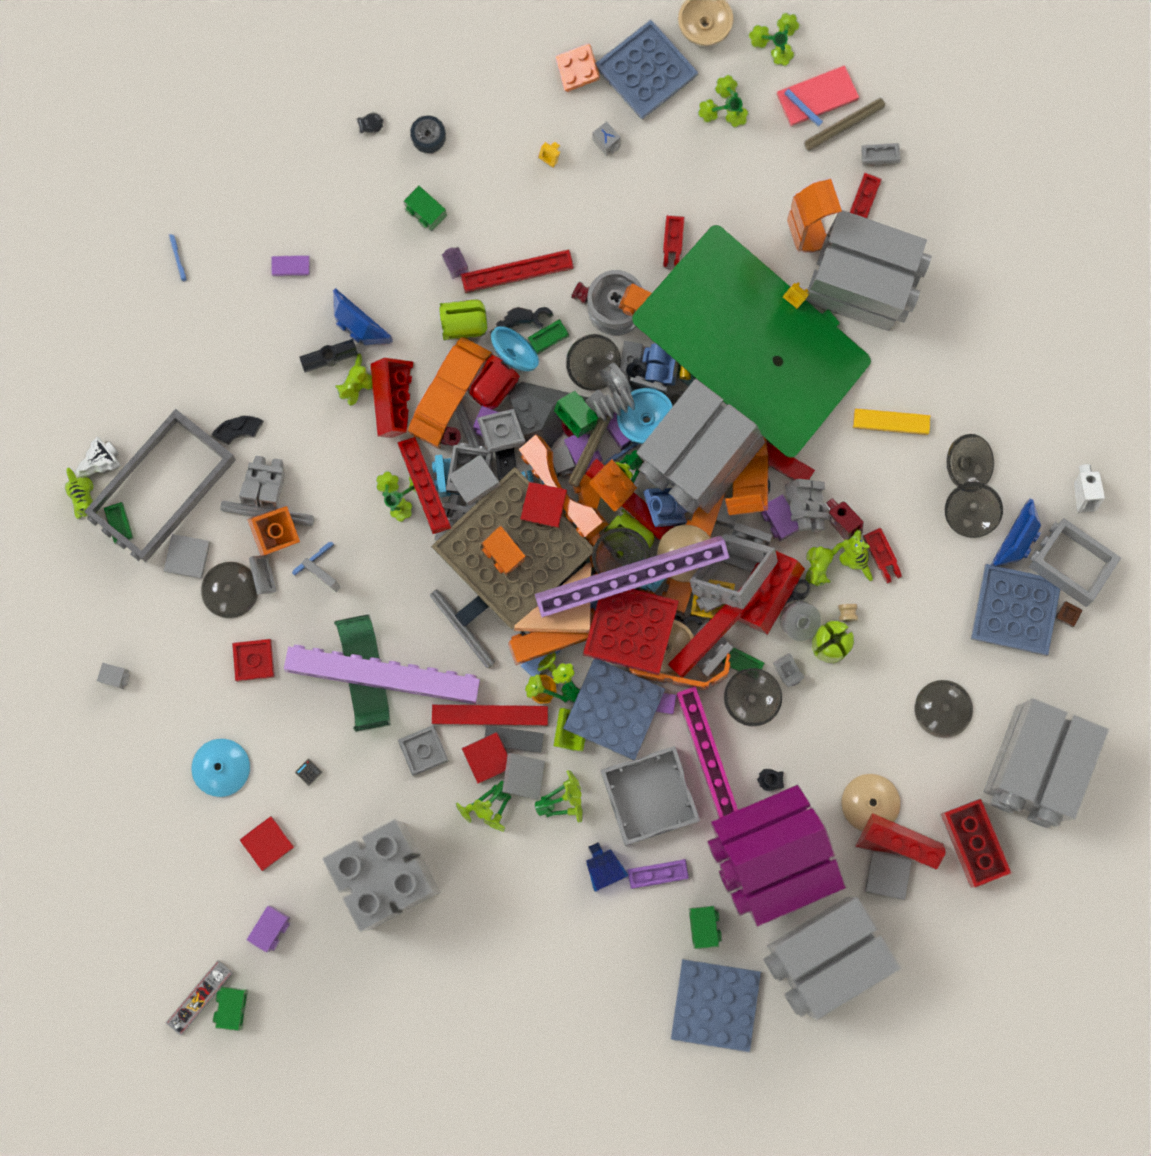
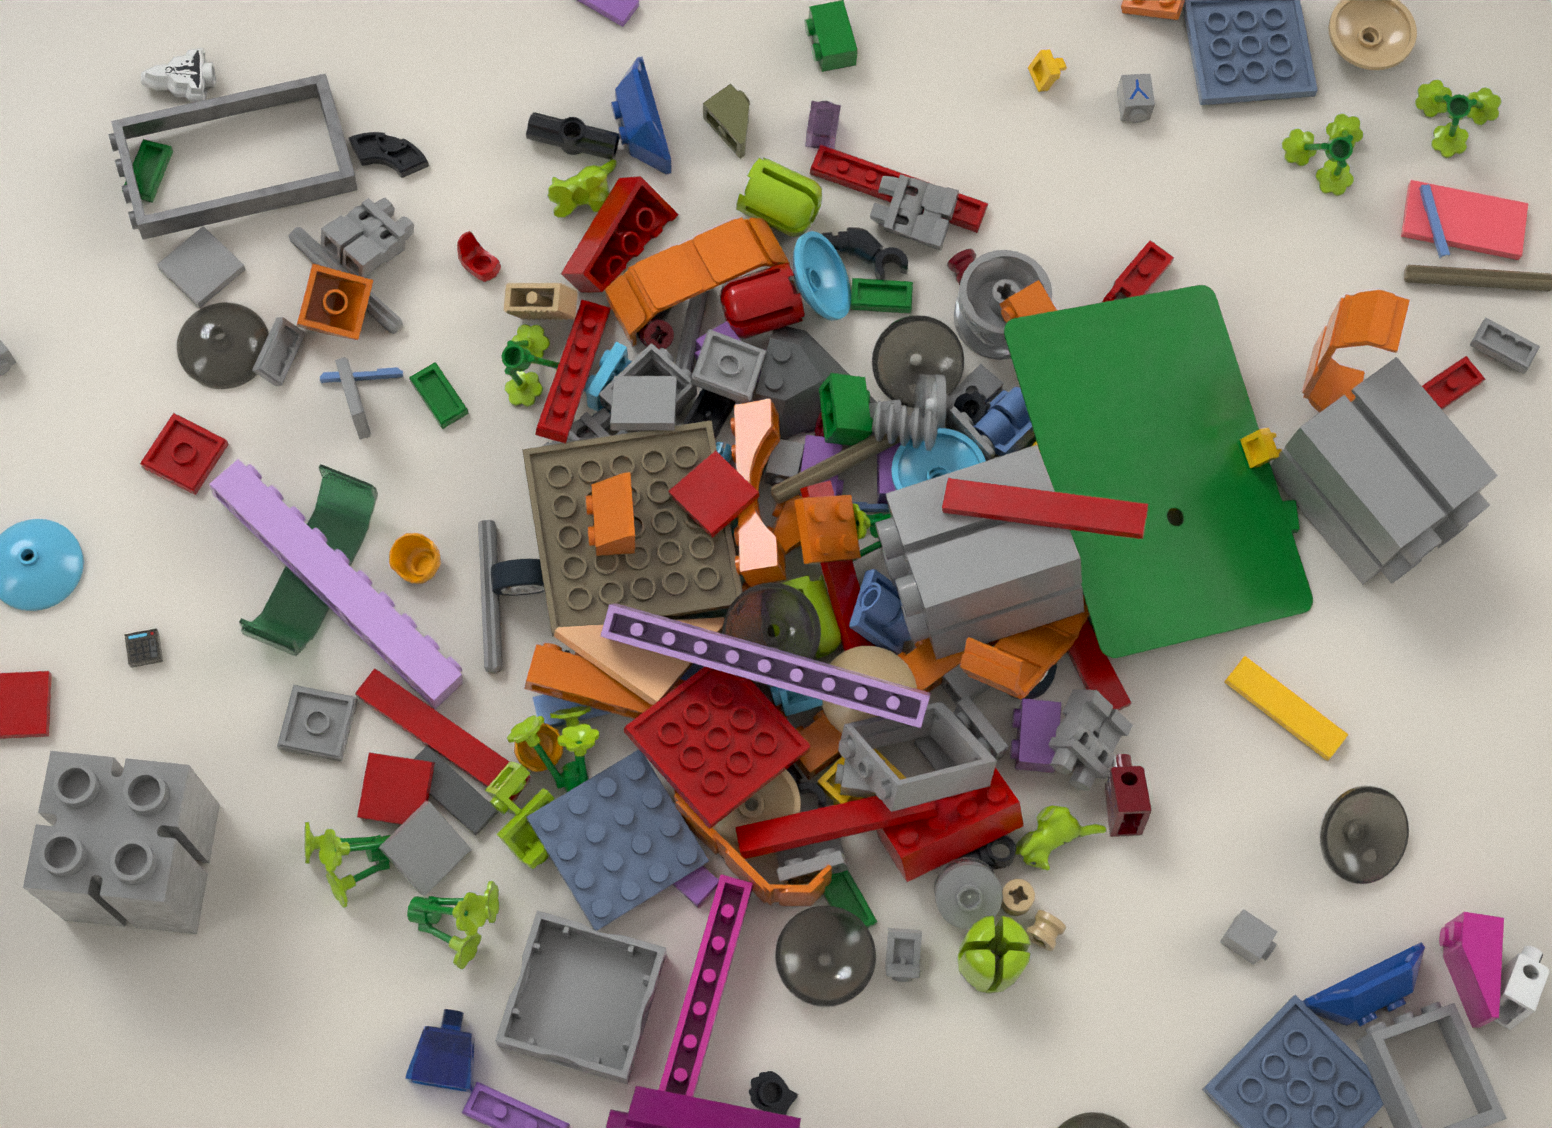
camera: 25 degrees right, 10 degrees down
(79, 491) = (127, 97): lime animal -> none
(328, 457) = (476, 259): none -> red hair
(360, 542) = (438, 395): none -> green tile
(379, 458) = (540, 301): none -> tan brick
(403, 290) = (729, 117): none -> olive slope
(412, 635) = (414, 558): none -> light orange hair
(531, 278) = (934, 199): none -> light grey hips
(540, 719) = (507, 783): none -> lime bracket
(722, 410) = (1045, 508): none -> red tile
(824, 609) = (1014, 904): none -> tan wheel
(856, 554) = (1111, 855): lime animal -> none
(882, 553) = (1151, 880): red hinge -> none
(947, 550) = (1250, 937): none -> light grey brick
(973, 521) = (1309, 919): clear smoke dish -> none
(1060, 490) = (1474, 960): none -> dark pink slope

